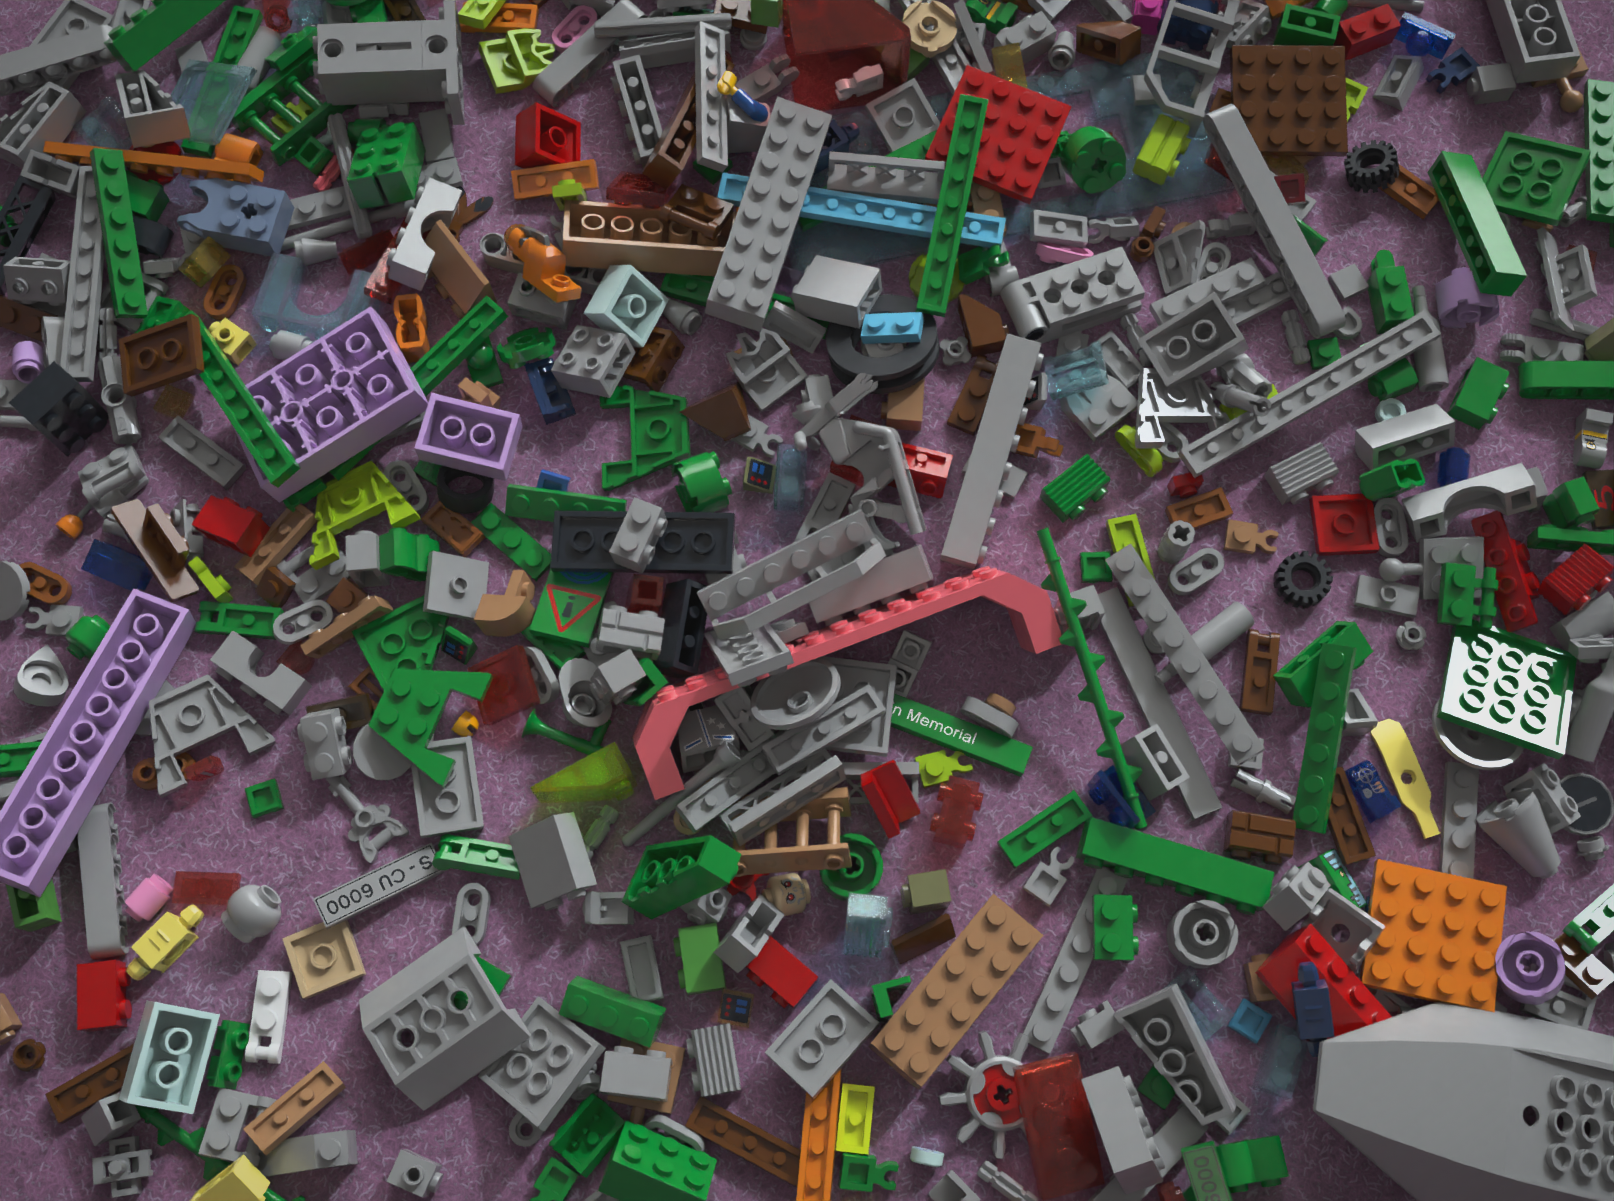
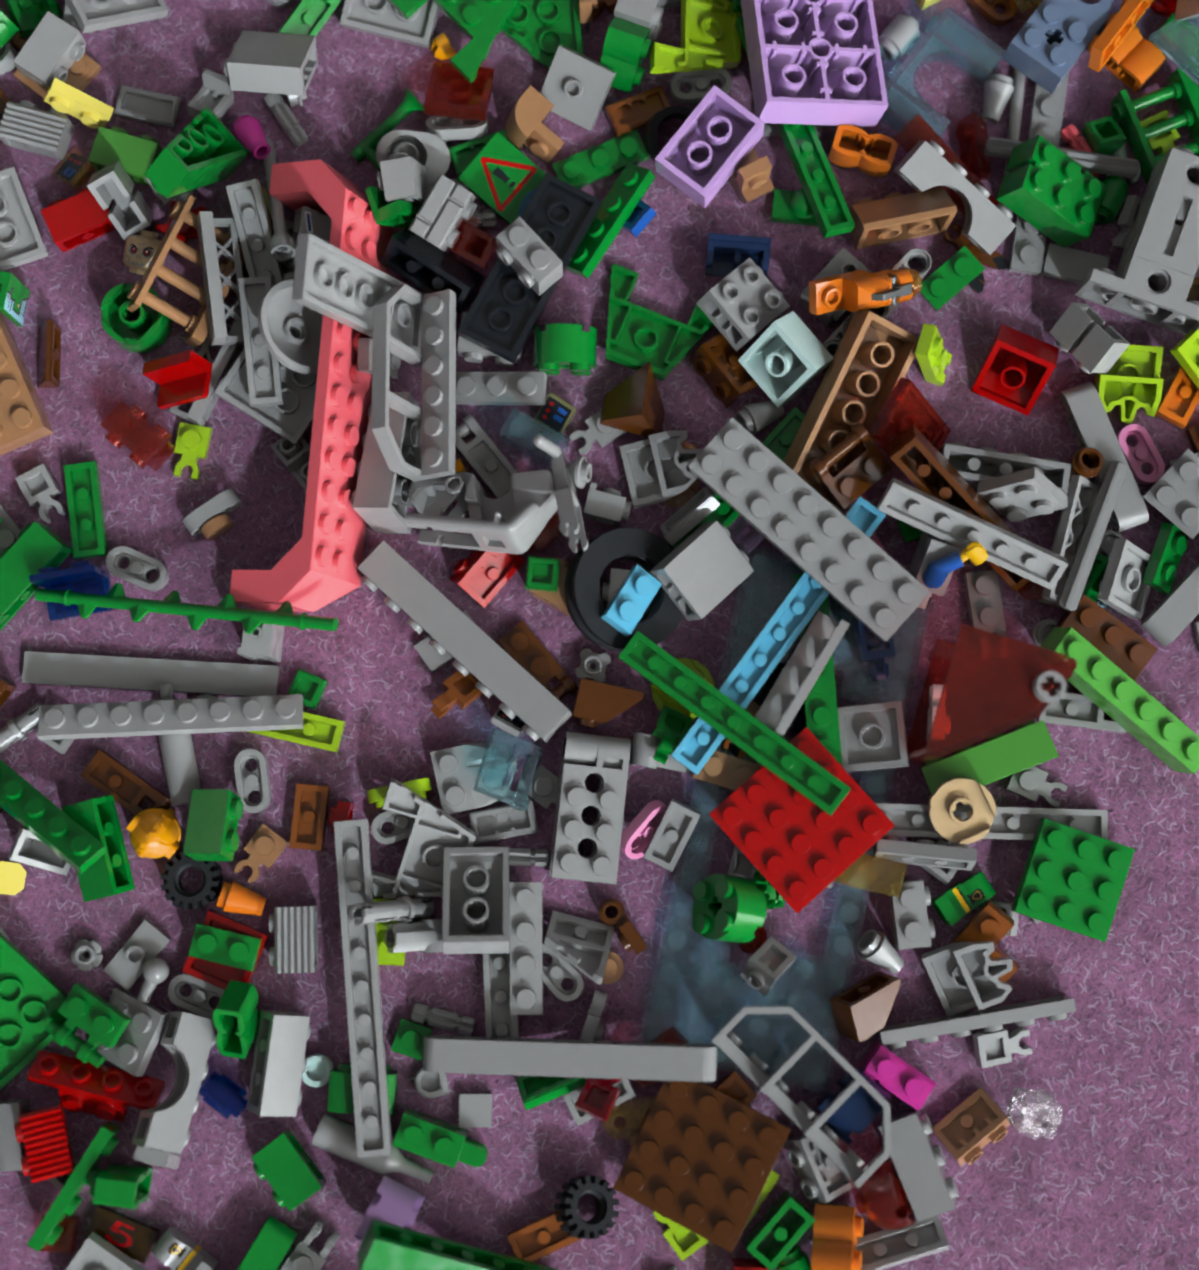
camera: 115 degrees right, 10 degrees up
(458, 645) = (522, 72): slope -> none
(487, 217) = (951, 278): none -> green plate
(506, 80) = (1082, 333): none -> light grey piece
(519, 351) = (783, 239): green plate -> none
(538, 181) = (967, 357): orange plate -> none
(593, 778) = (326, 123): clear neon green slope -> none
(605, 52) = (1086, 462): none -> reddish brown cone
(612, 1011) = (120, 60): green brick -> none
(629, 851) = (251, 136): none -> dark pink cone
(659, 92) = (1023, 494): none -> light grey plate
(675, 1033) = (78, 104): none -> light yellow plate
(756, 520) = (501, 388): none -> light grey plate
(867, 925) = (76, 304): clear light blue brick -> none
(904, 412) = (542, 574): none -> green tile
(926, 892) = (76, 369): olive brick -> none
(960, 735) = (211, 477): green tile -> none
(1071, 757) = (138, 569): none -> light grey plate
(1075, 489) = (390, 707): green brick -> none
(1117, 228) = (647, 899): light grey plate -> none
(1120, 116) = (767, 965): none -> light grey bracket
(1141, 92) = (786, 1021): light grey tile -> none
(1157, 759) = (89, 636): light grey brick -> none
(1161, 150) = (706, 987): lime brick -> none
(1176, 542) = (277, 761): light grey axle -> none
(1253, 572) = (213, 825): none -> green brick
(1285, 622) = (155, 833): none -> light orange helmet
(1295, 533) = (240, 900): none -> orange cone
(1341, 521) = (225, 947): none -> green plate

